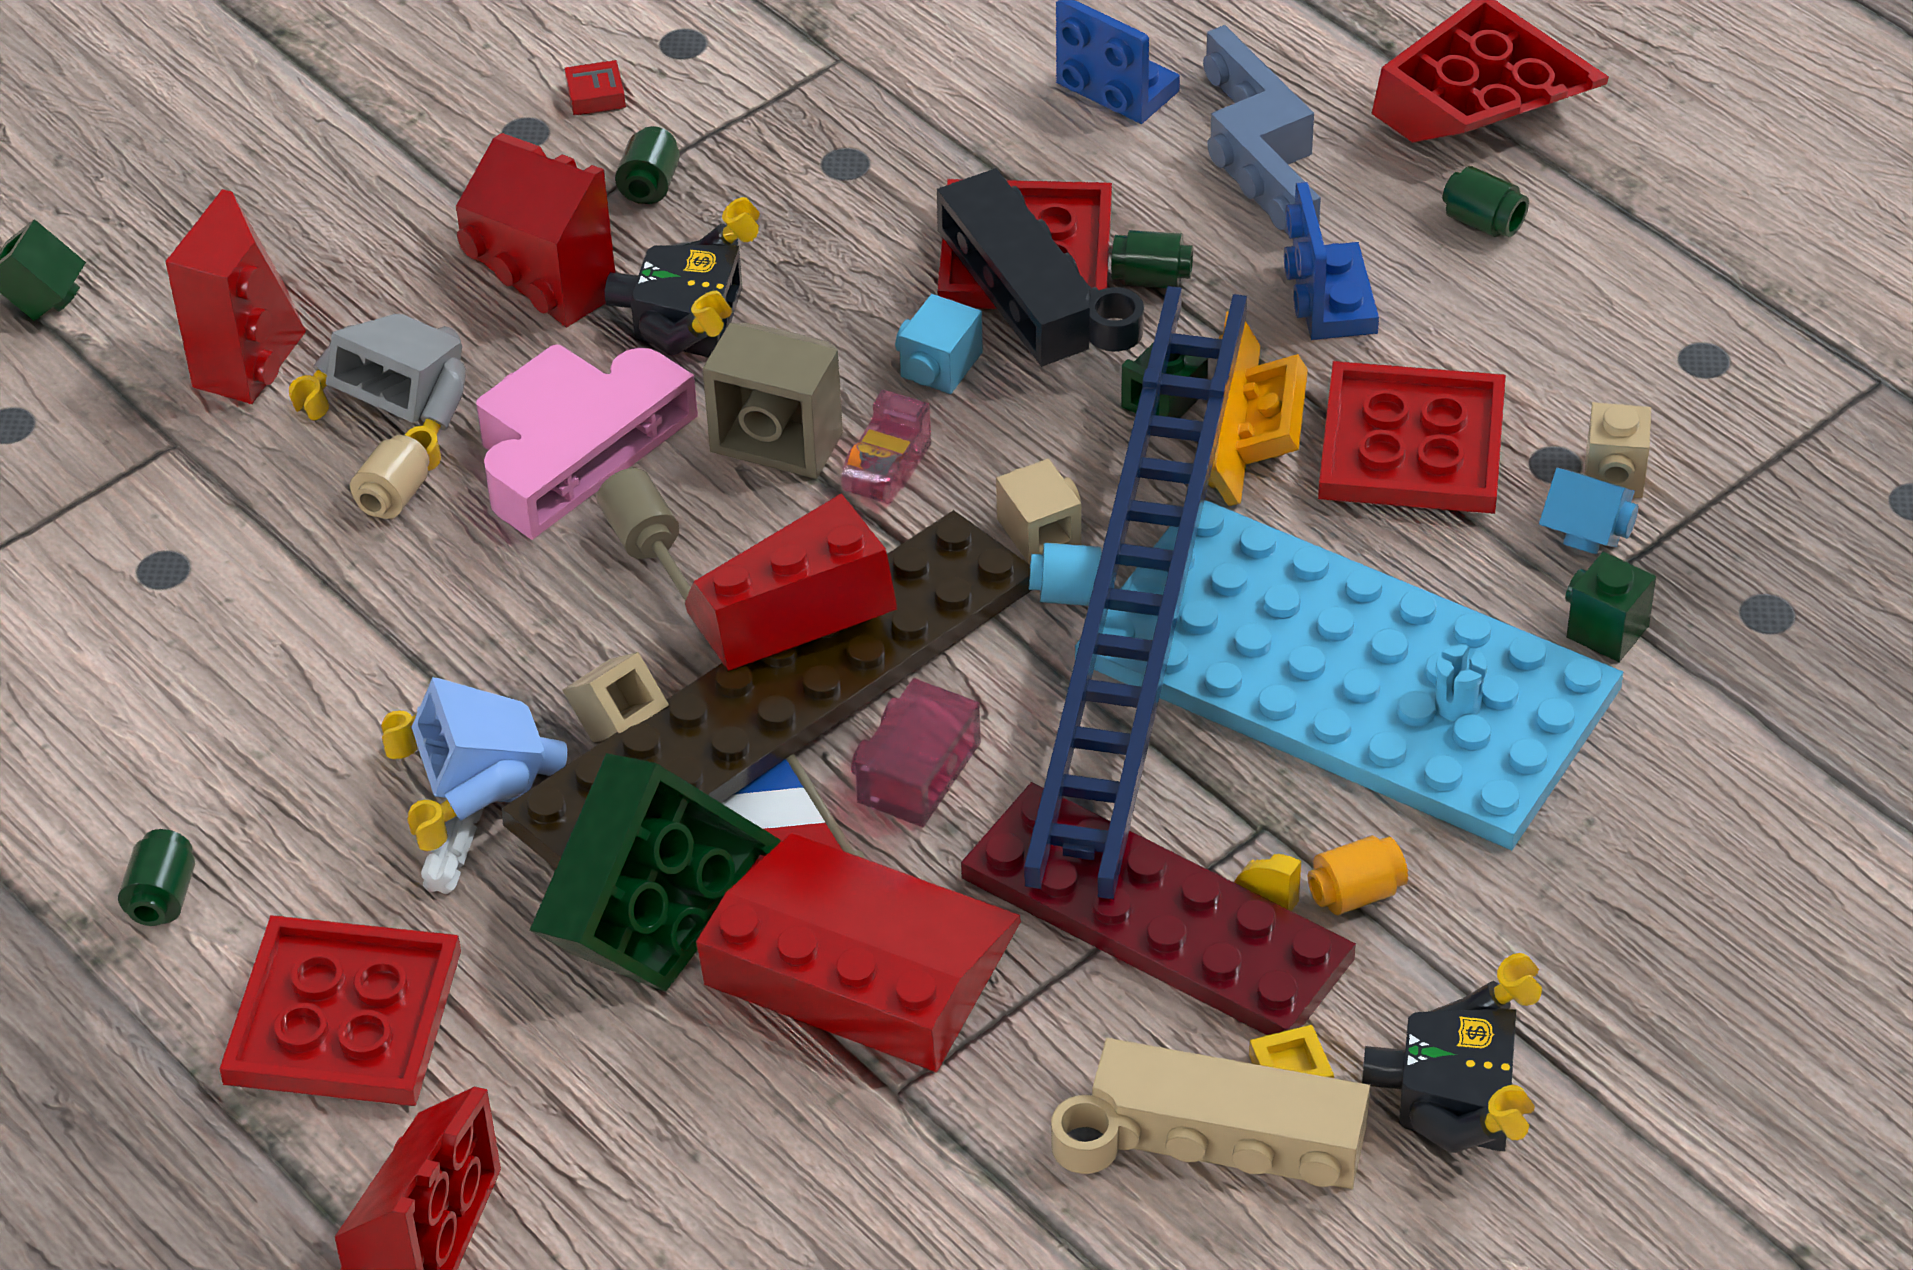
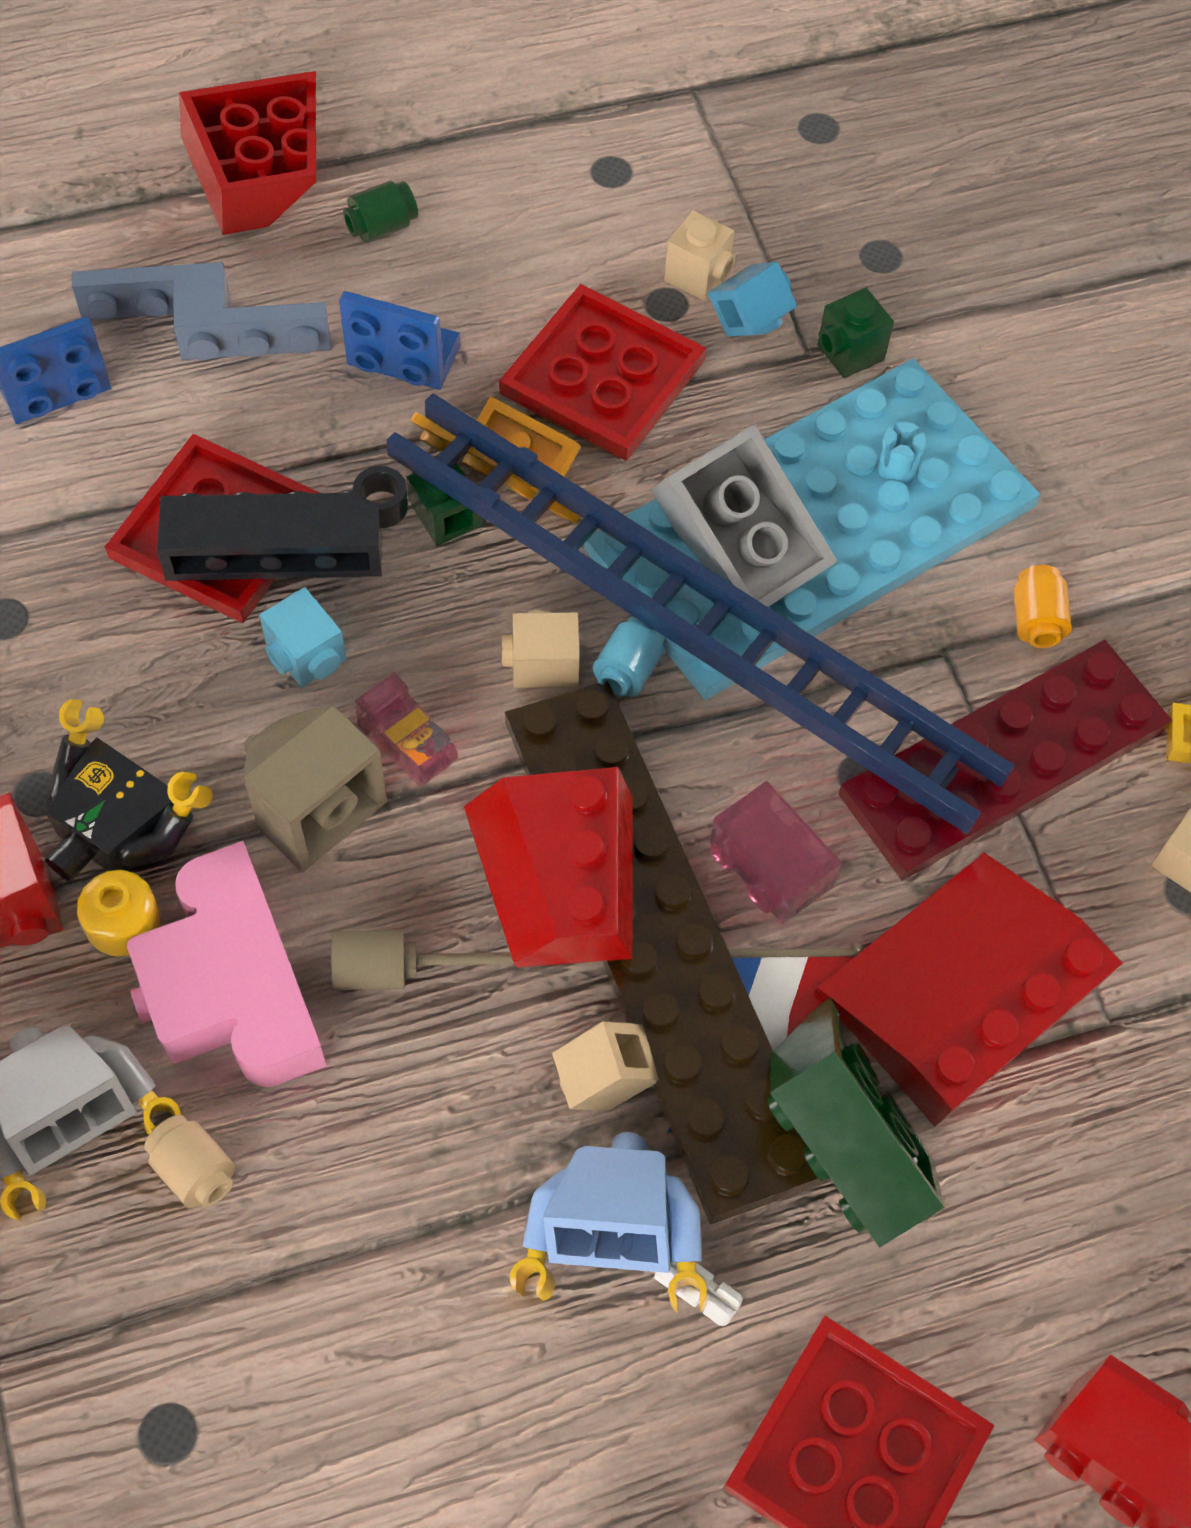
camera: 70 degrees left, 15 degrees up
(588, 329) = (116, 909): none -> yellow head
(1151, 259) = (300, 445): dark green brick -> none
(1271, 577) = (745, 519): none -> light grey slope
(1273, 879) = (1028, 665): yellow tile -> none

